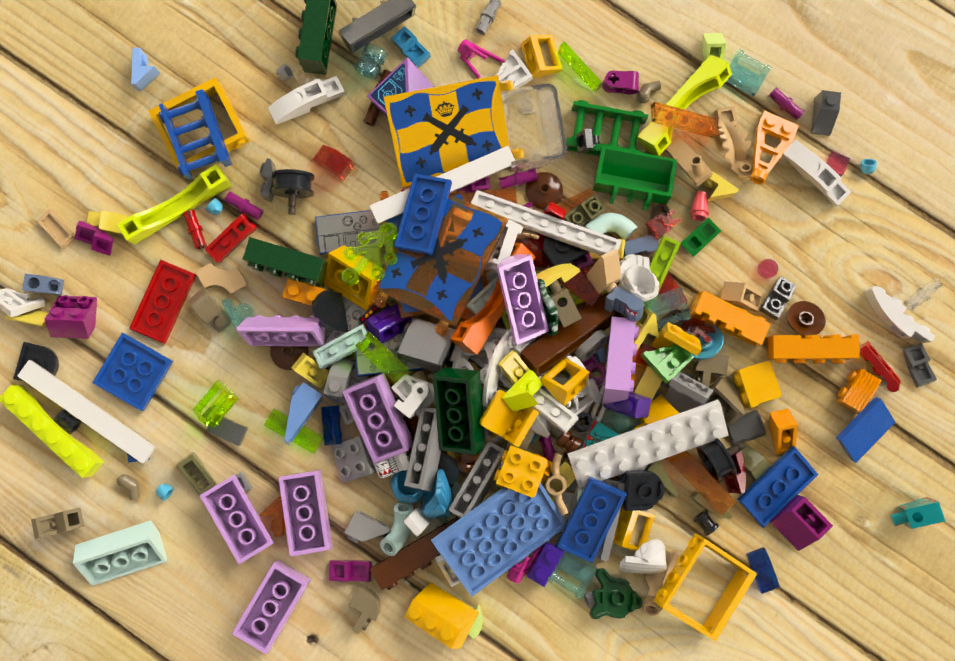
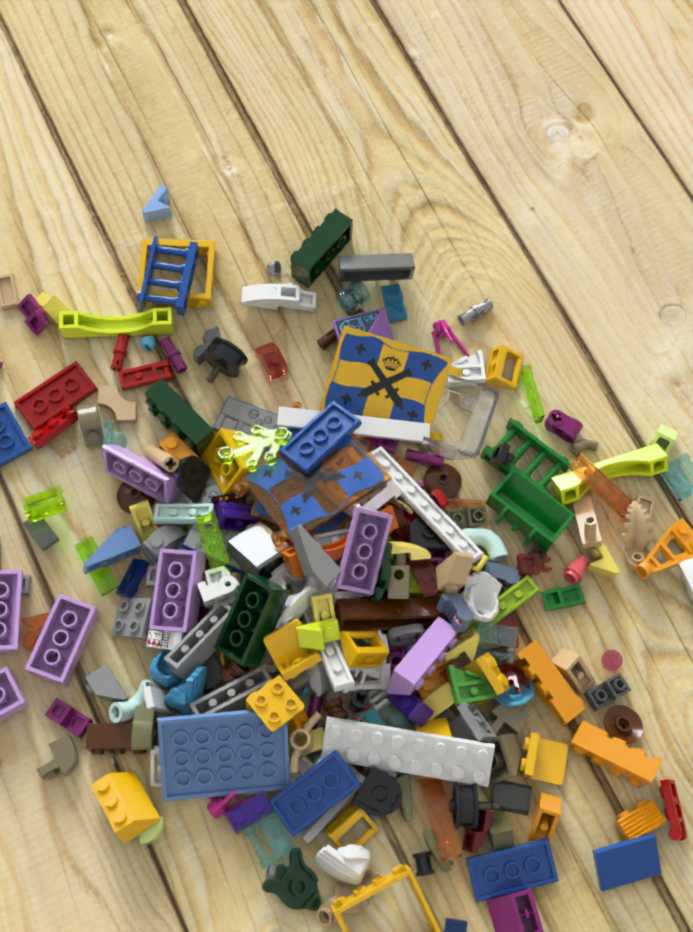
camera: 25 degrees right, 15 degrees down
(180, 332) = (53, 428): none -> red plate
(293, 309) = (162, 458): none -> tan piece
(420, 549) = (143, 728): none -> olive slope
(487, 334) = (314, 561): none -> light grey slope

